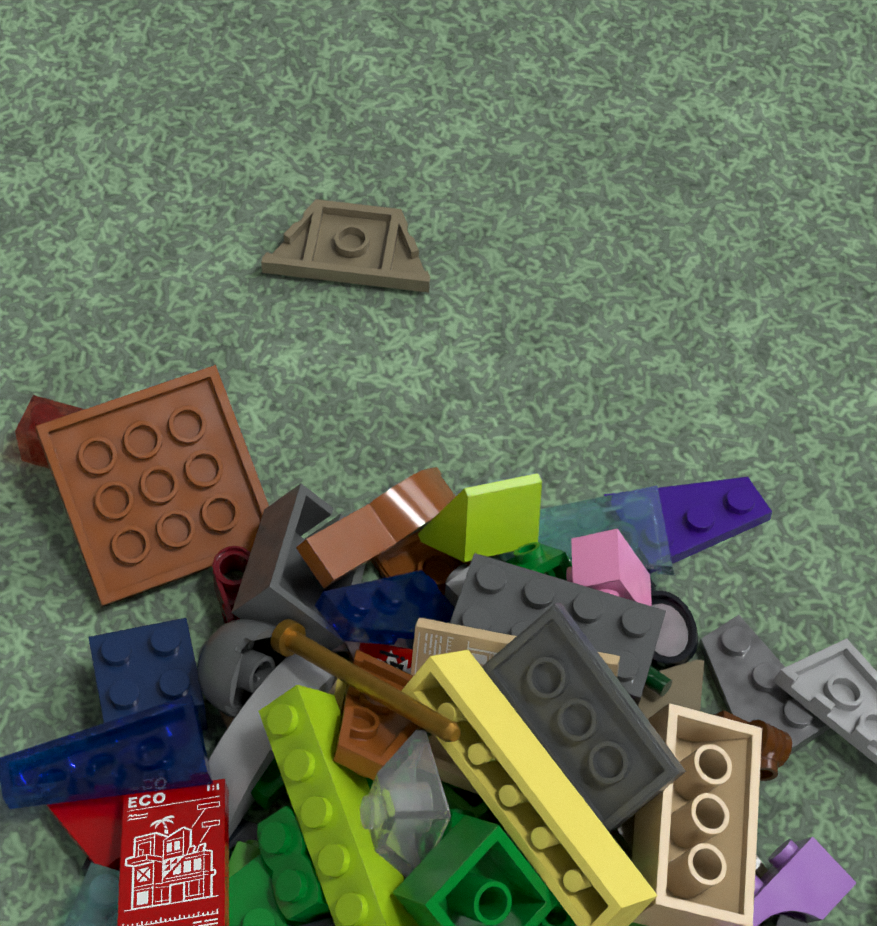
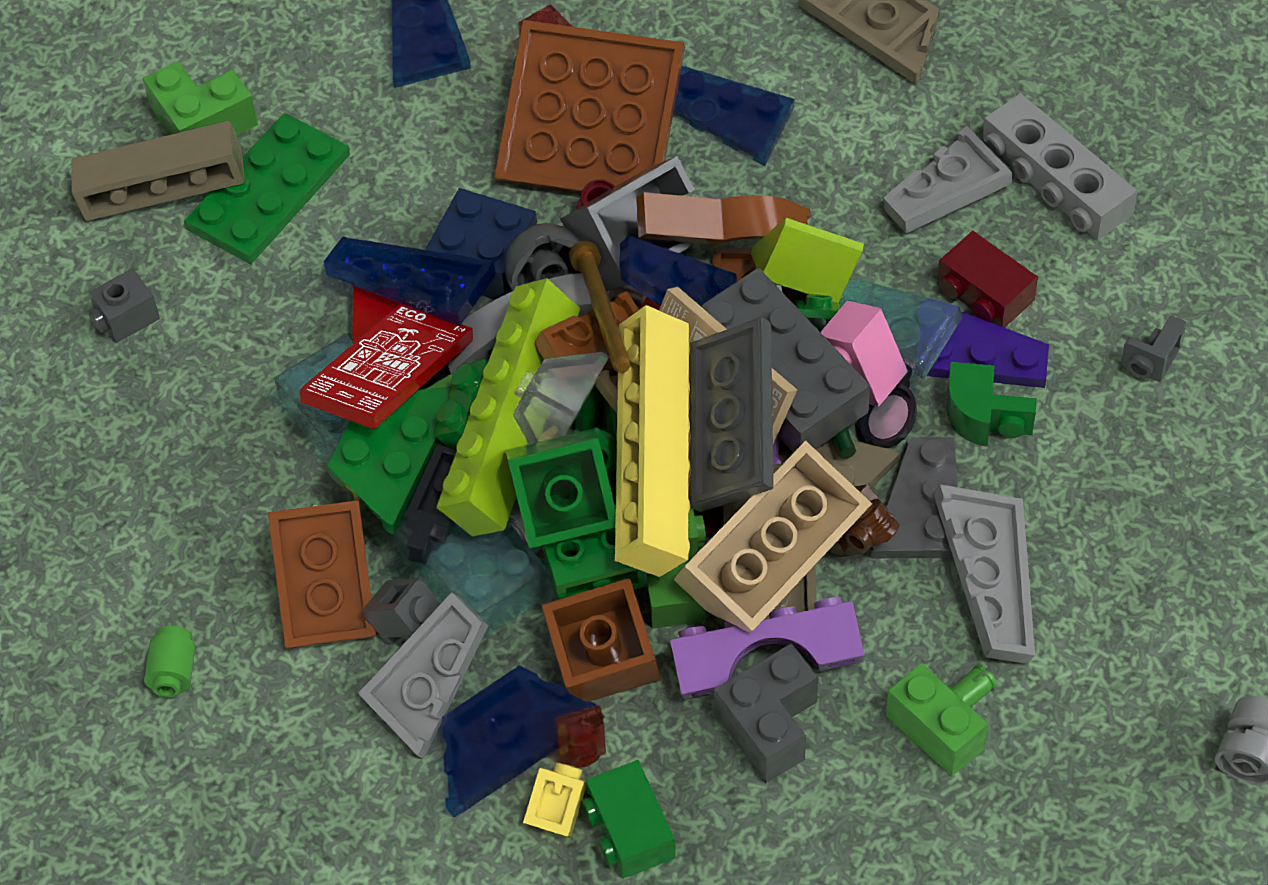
camera: 40 degrees right, 0 degrees up
(291, 409) = (733, 111): none -> clear blue wing
(536, 371) = (948, 183): none -> light grey wing
(623, 303) = (1059, 167): none -> light grey brick
(648, 446) = (986, 280): none -> dark red brick
(734, 574) = (977, 411): none -> green brick
(846, 430) = (1156, 356): none -> dark grey bracket

